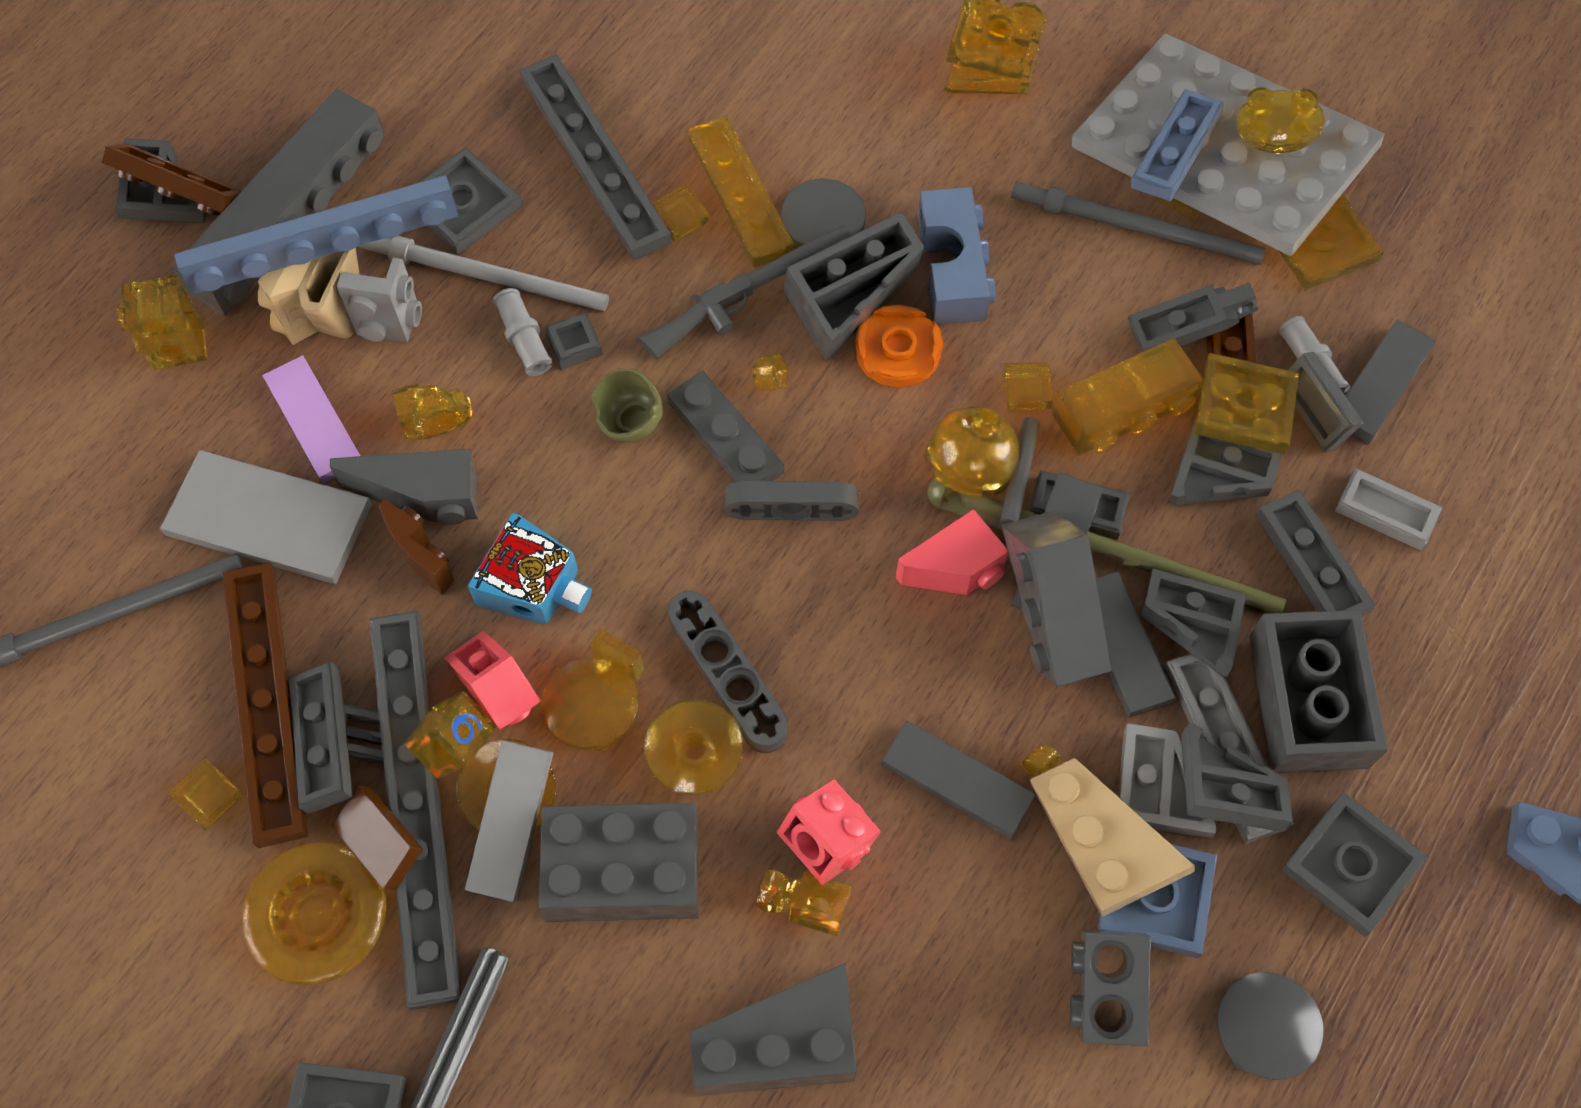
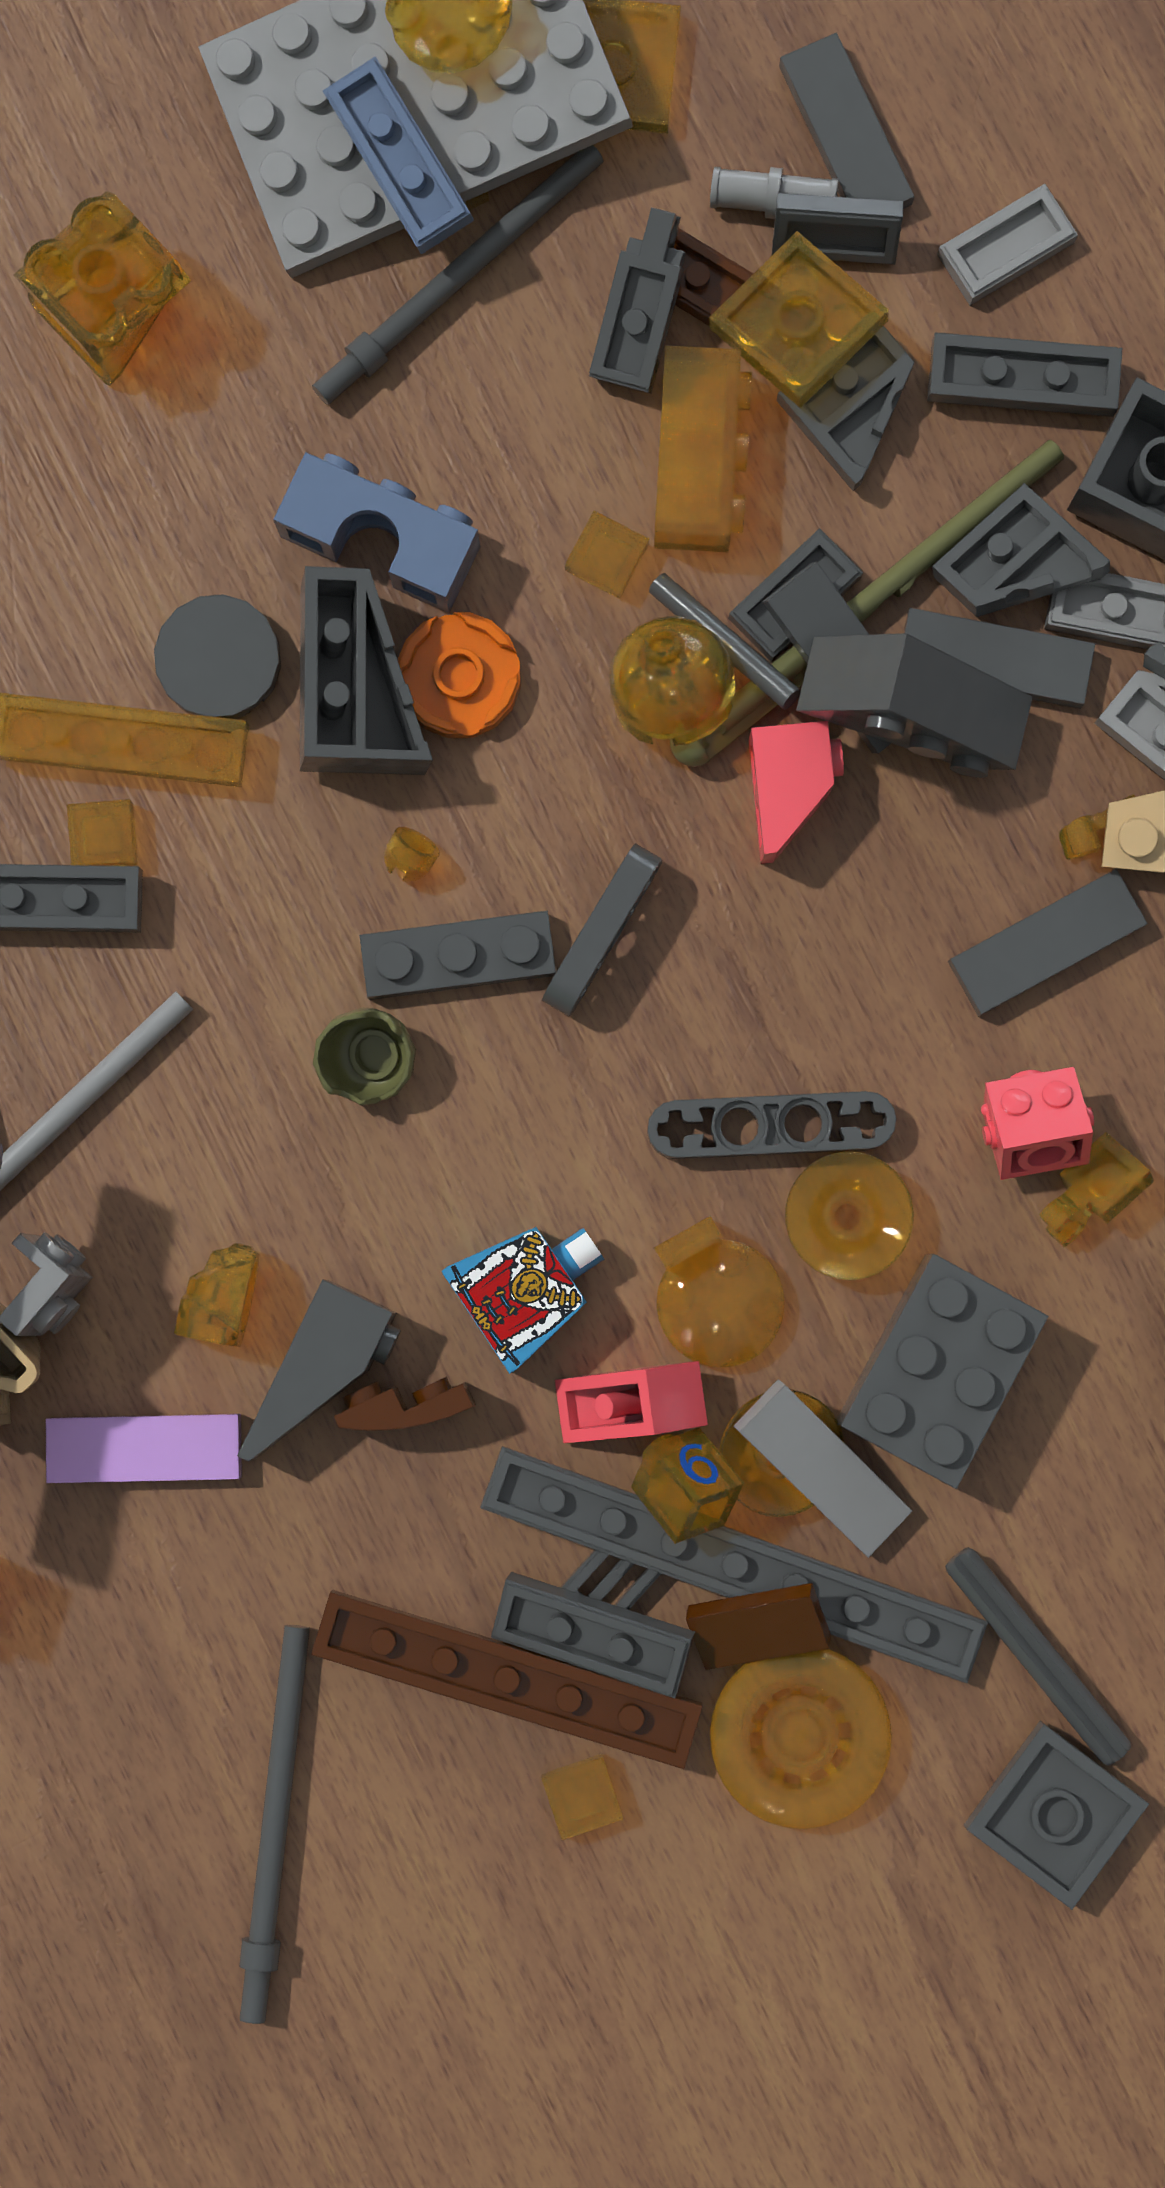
camera: 55 degrees left, 20 degrees up
(266, 517) = (251, 1567): light grey tile -> none
(522, 332) = (171, 1127): light grey pin -> none
(573, 340) = (216, 1069): dark grey tile -> none
(714, 300) = (268, 873): dark grey piece -> none

